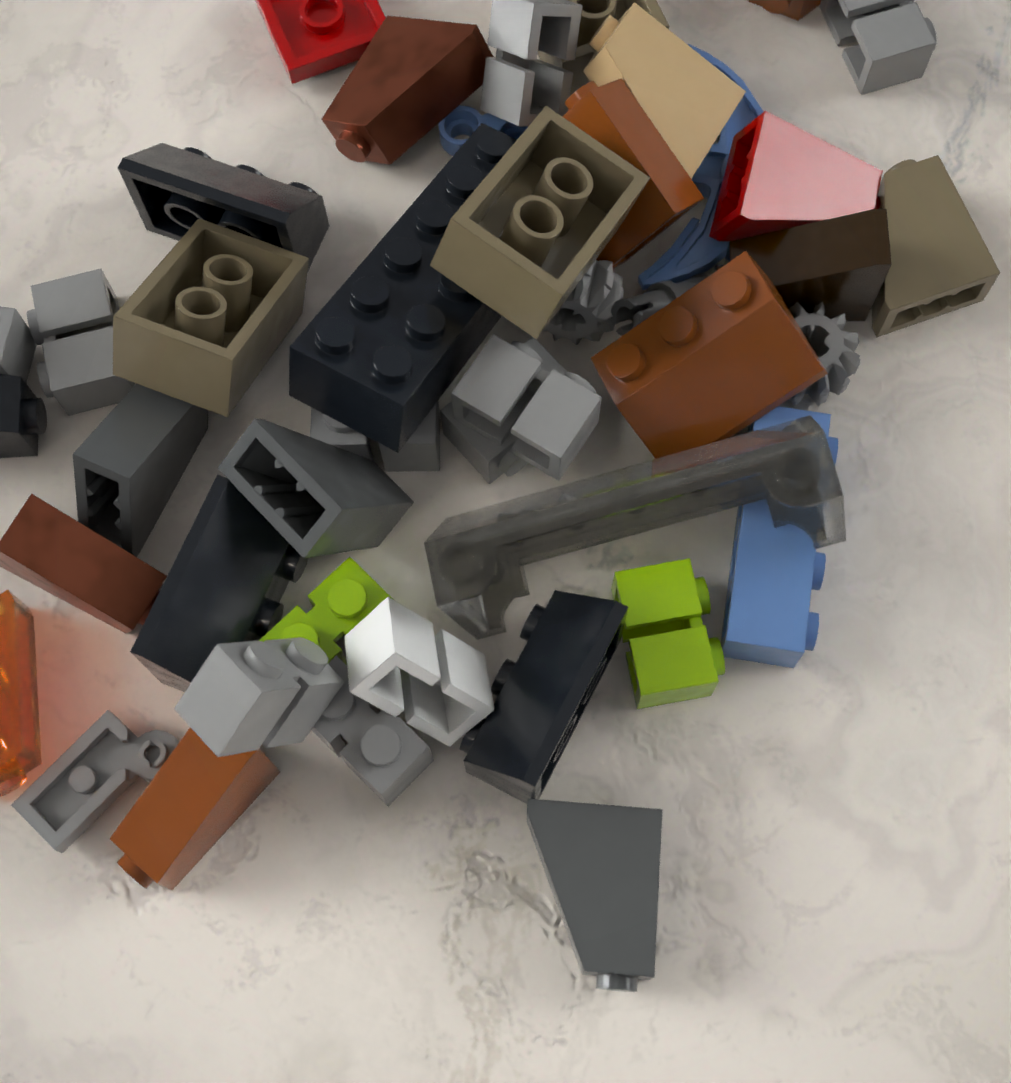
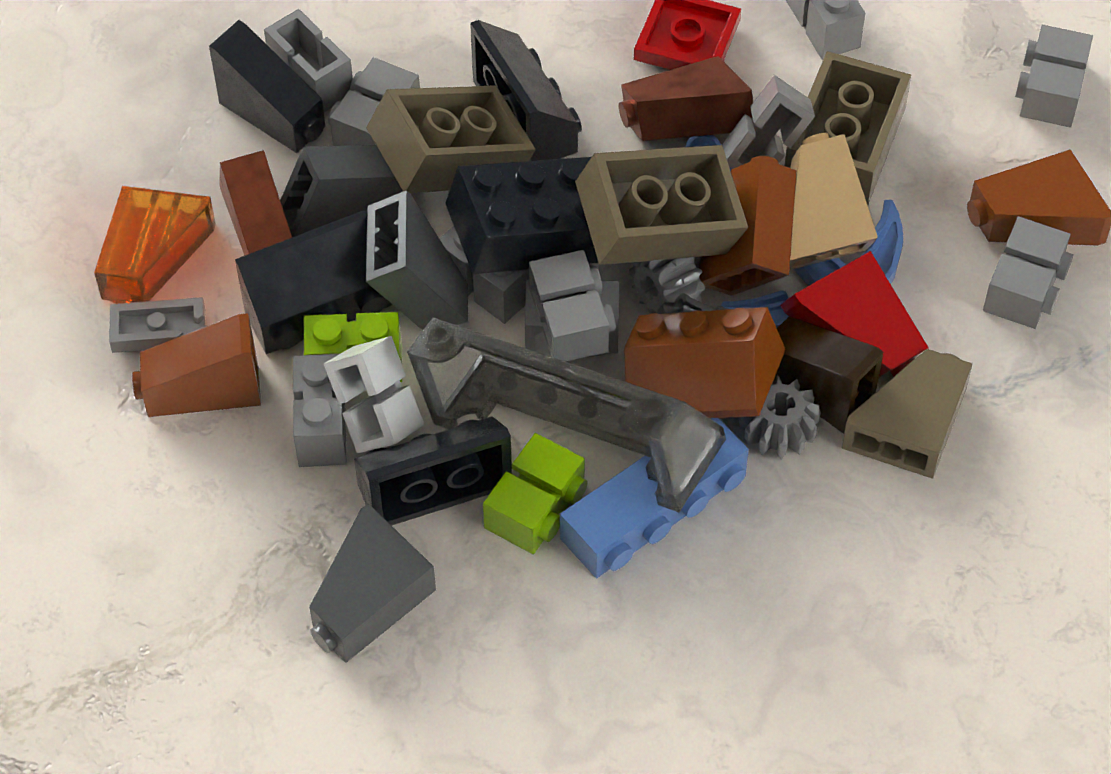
camera: 40 degrees right, 15 degrees down
(259, 694) = (273, 312): light grey piece -> none

